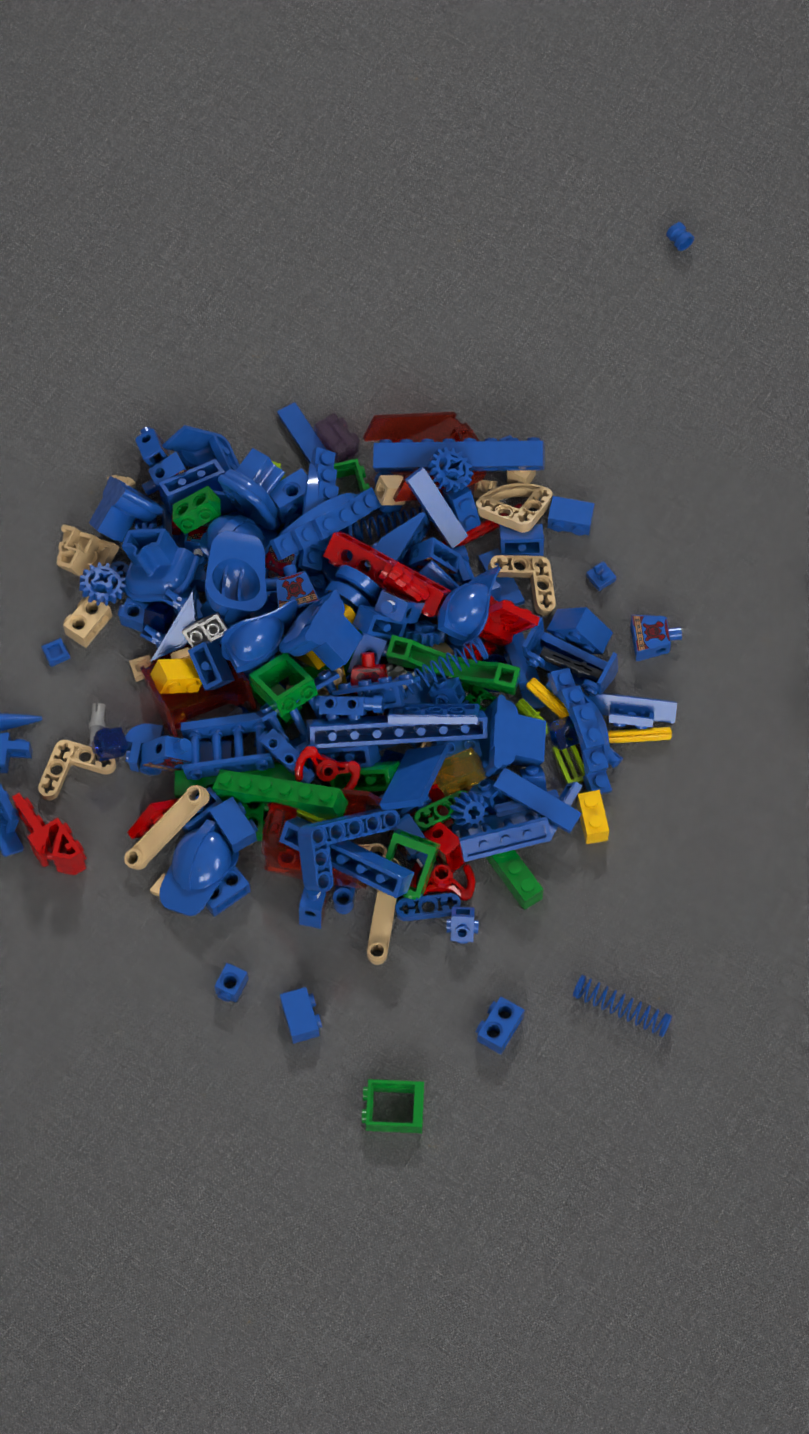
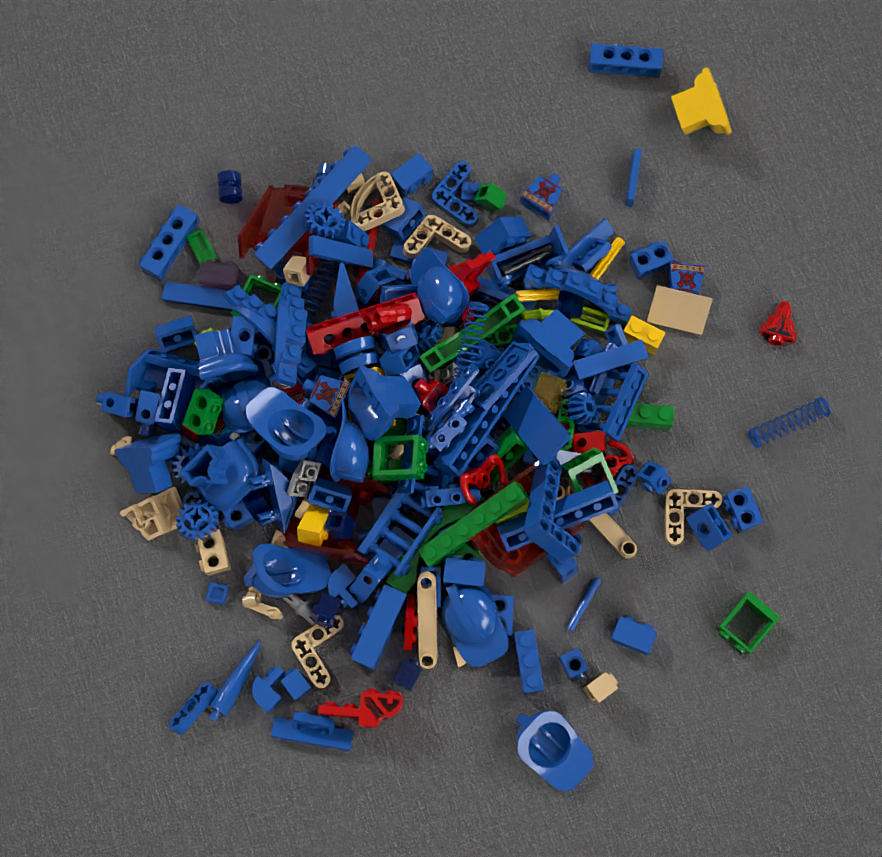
camera: 55 degrees left, 10 degrees up
(27, 771) = (295, 684): none -> blue brick
(73, 683) = (254, 602): none -> tan pin
(108, 853) = (408, 674): none -> clear blue brick
(117, 685) = (286, 571): none -> blue piece
(126, 795) = (378, 628): none -> blue brick
(137, 1018) = (553, 749): none -> blue piece
(190, 693) = (340, 525): none -> clear blue brick
(201, 942) = (528, 662): none -> blue brick
(225, 1017) = (601, 688): none -> tan brick
(246, 438) = (176, 333): none -> blue brick
(295, 954) = (583, 604): none -> blue bar
(324, 385) = (159, 268): none -> blue brick
(352, 405) = (201, 246): none -> green tile
(424, 384) = (230, 187): none -> clear blue wheel
(456, 1005) = (718, 530): none -> blue brick
(463, 971) = (683, 503): none -> tan beam
(583, 559) = (448, 193): none -> blue beam
(608, 593) = (490, 197): none -> green brick
(645, 829) = (679, 310): none -> tan tile
(671, 776) = (653, 263): none -> blue brick
(679, 816) = (685, 277): none -> torso
(712, 931) = (779, 327): none -> red rock
(741, 698) = (633, 176): none -> blue tile

